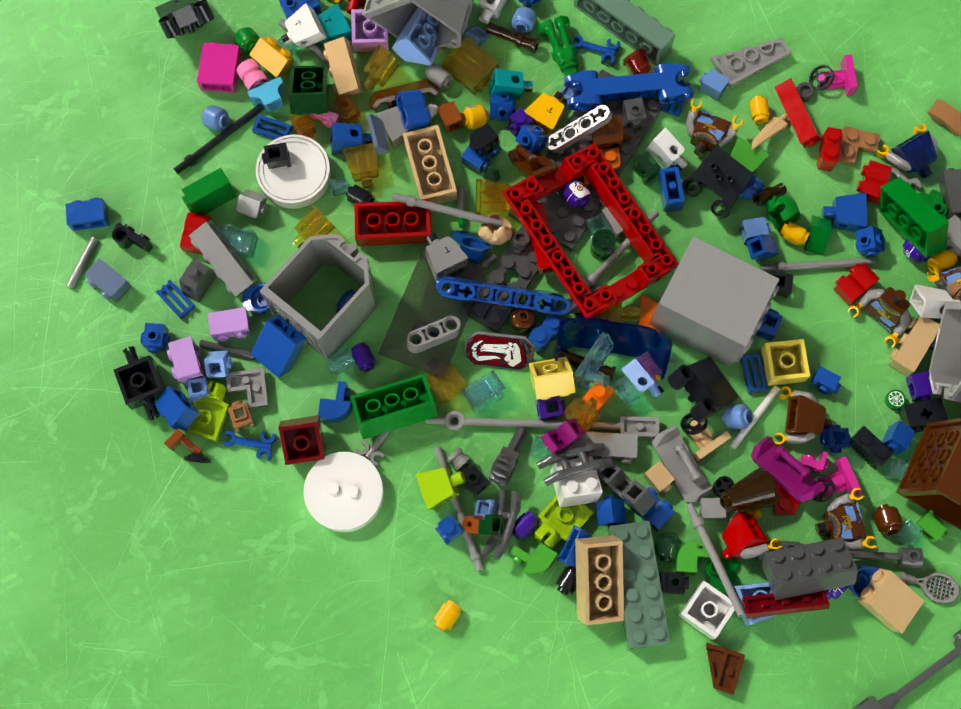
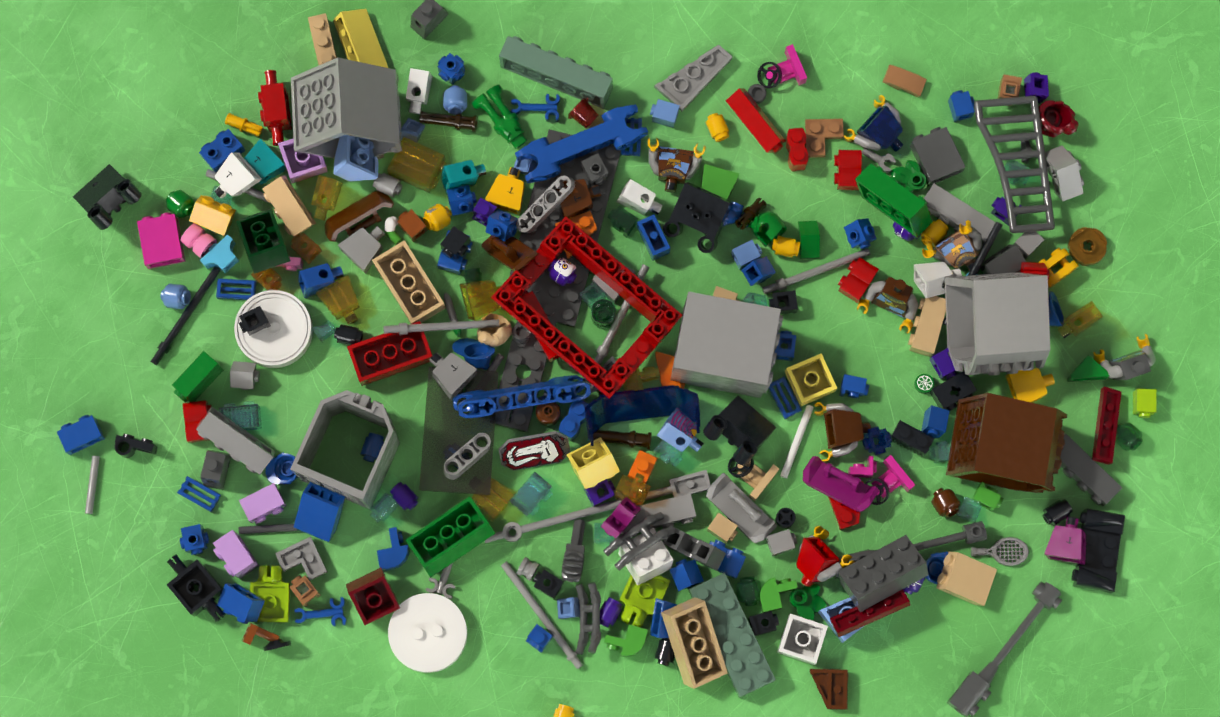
camera: 20 degrees left, 5 degrees up
(107, 280) = (126, 496): sand blue brick -> none
(197, 388) = (255, 577): medium blue slope -> none
(217, 364) = (265, 547): light blue brick -> none
(312, 224) = (314, 375): clear yellow torso -> none
(378, 134) = (348, 268): sand blue slope -> none
(412, 109) = (374, 232): blue brick -> none
(439, 486) = (518, 600): lime torso -> none
(486, 526) = (565, 625): dark green leg -> none
(593, 361) = (627, 438): clear light blue piece -> none
(698, 523) = (771, 560): light grey bar -> none
(737, 416) = (780, 446): medium blue head -> none
(750, 492) = (812, 516): dark brown cone -> none
(771, 128) = (735, 142): tan bar -> none
(845, 521) = (907, 518): torso -> none
(848, 212) = (831, 209): blue torso -> none

